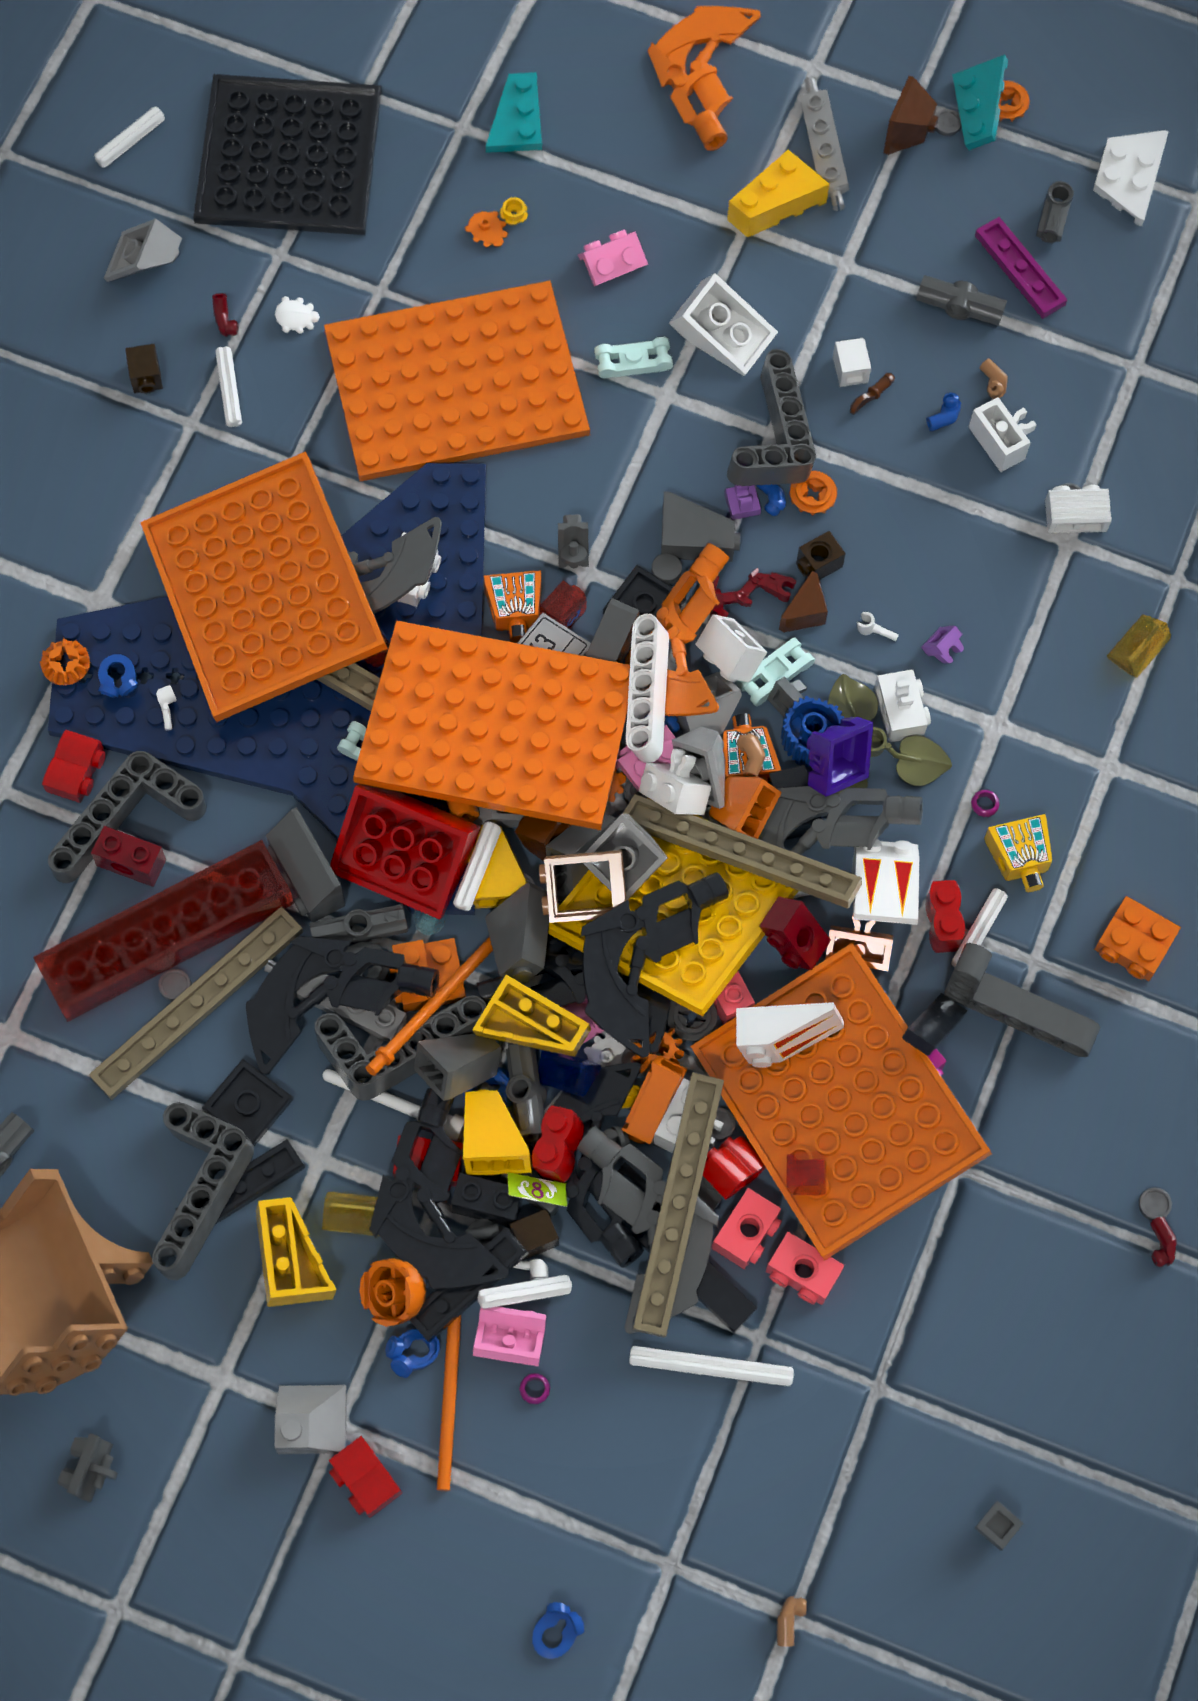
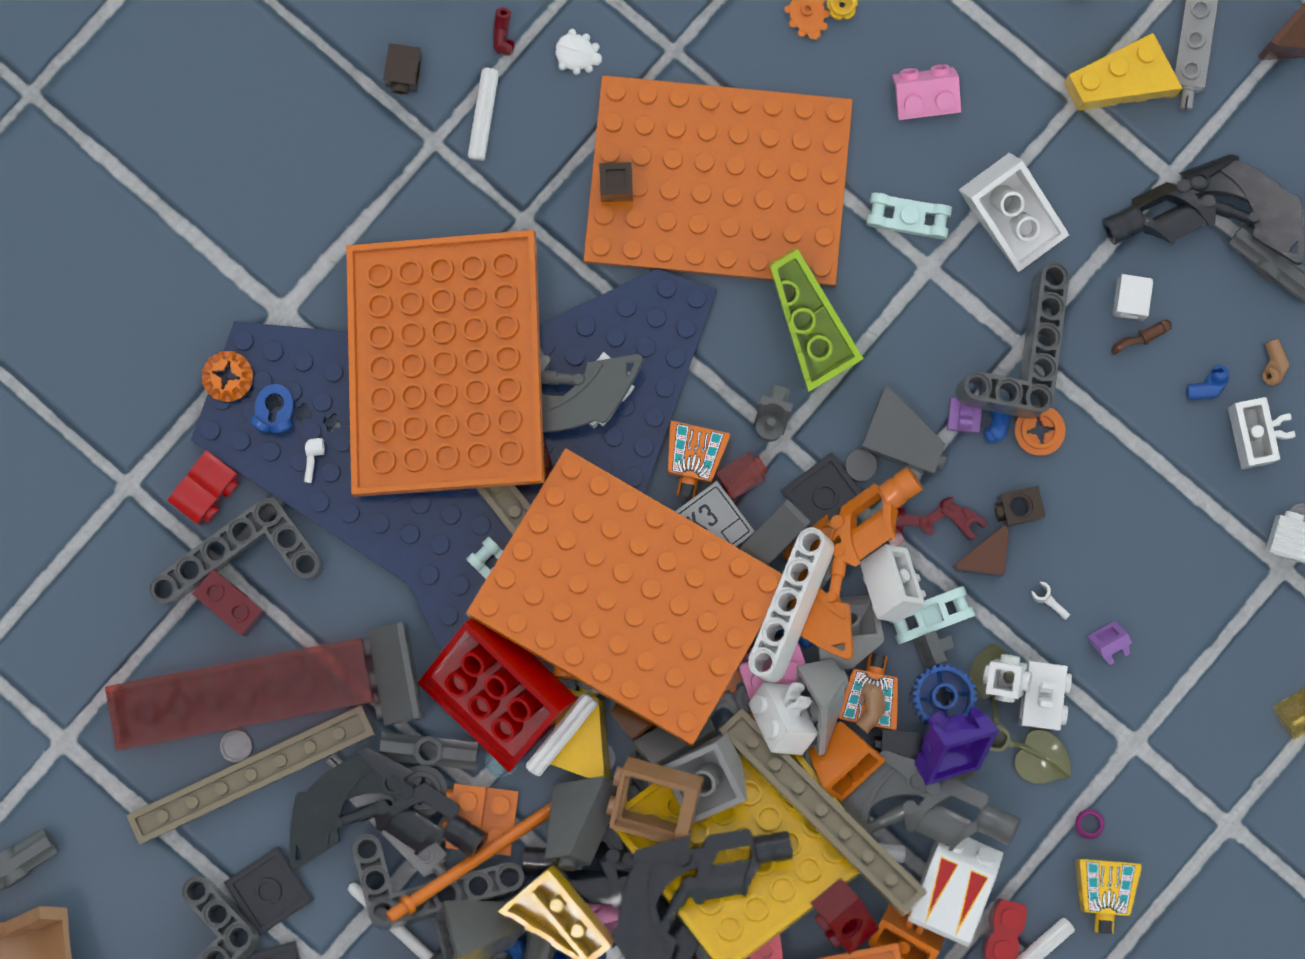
camera: 20 degrees right, 15 degrees up
(366, 394) = (616, 182): none -> dark brown brick
(581, 459) = (814, 327): none -> lime wedge
(862, 683) = (997, 684): none -> white brick
(875, 271) = (1273, 214): none -> black piece

